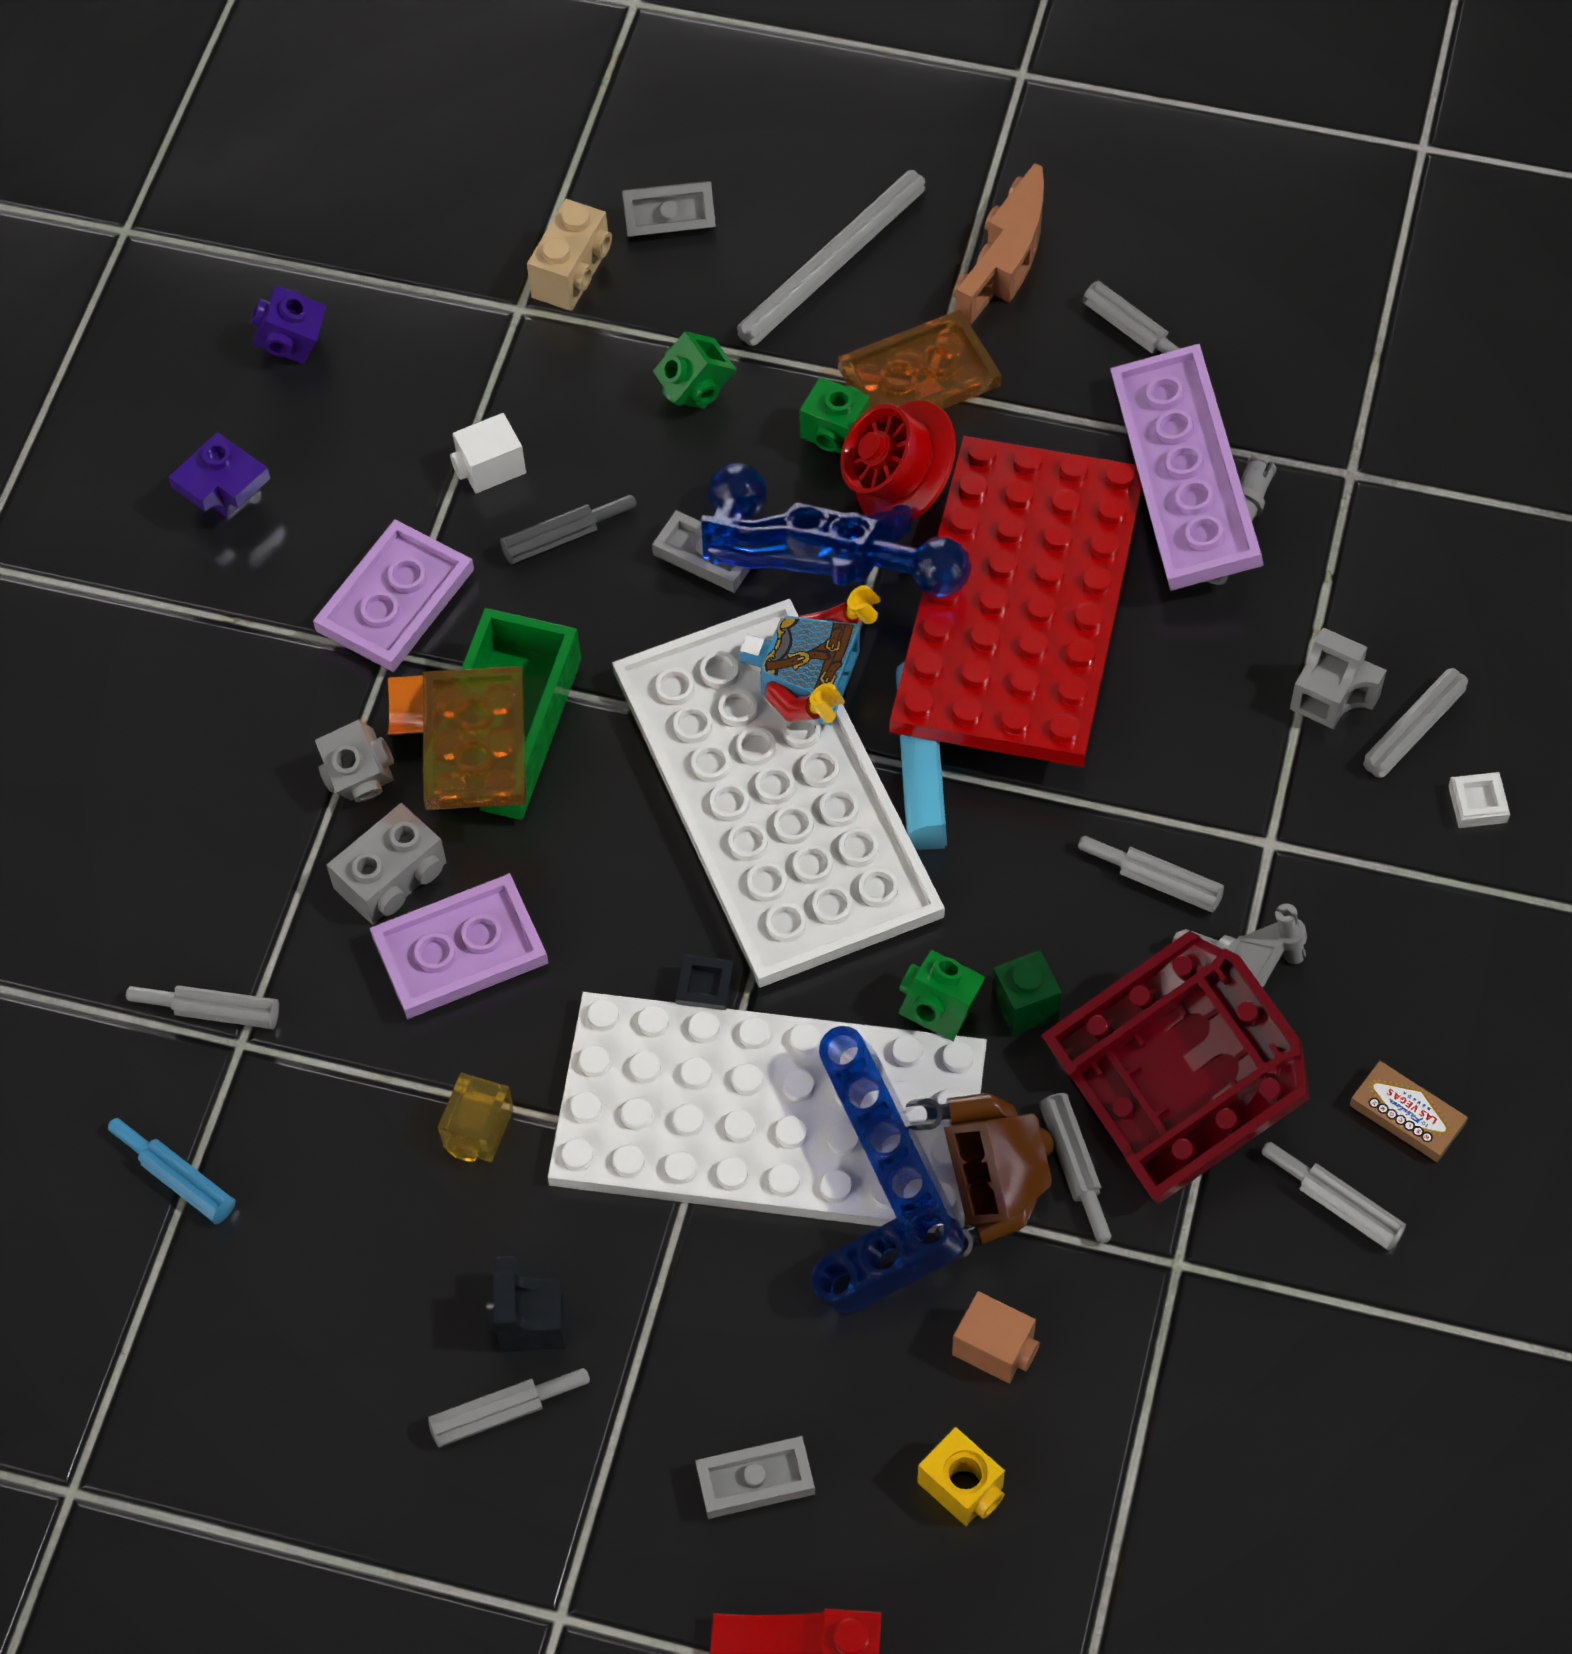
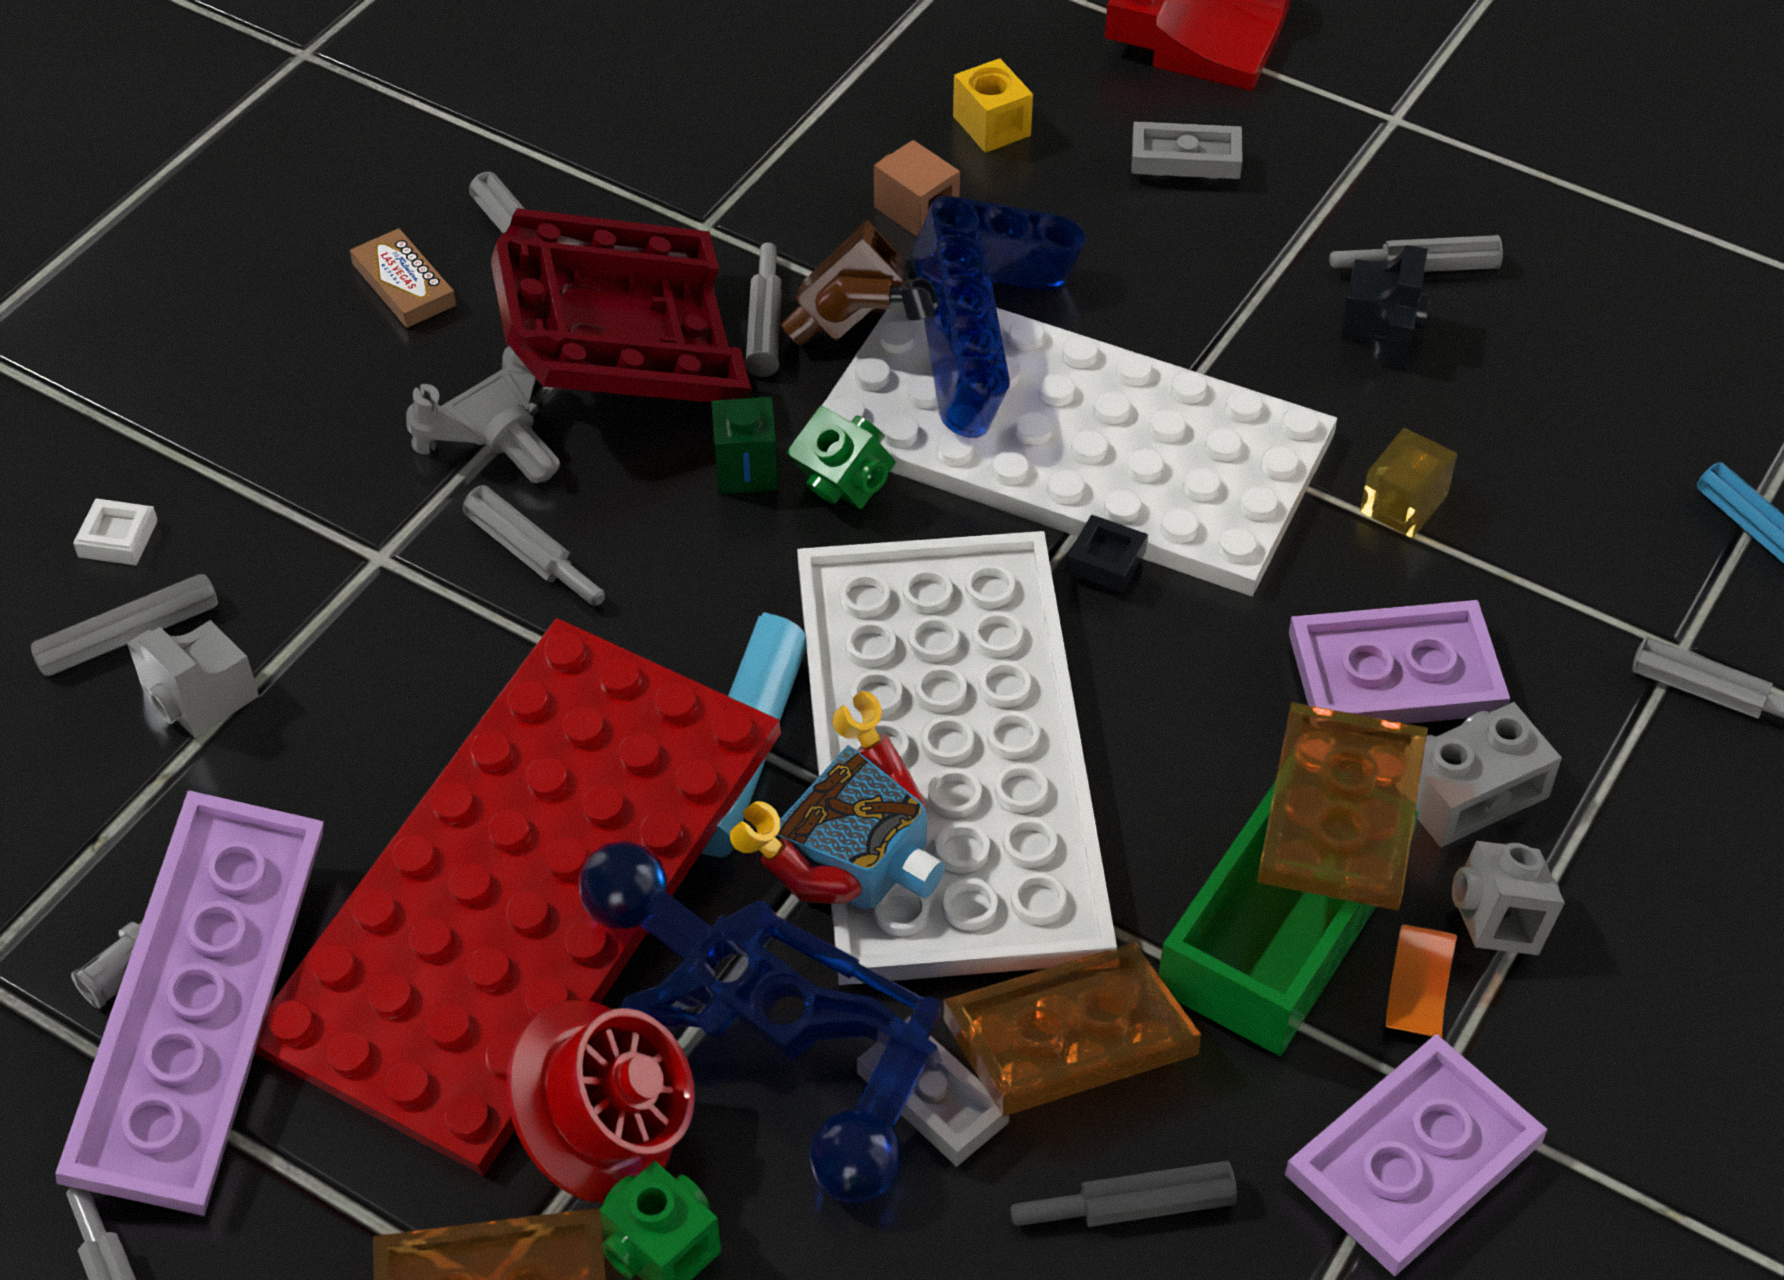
camera: 165 degrees left, 10 degrees down
(628, 598) = (1070, 1028): none -> clear orange plate

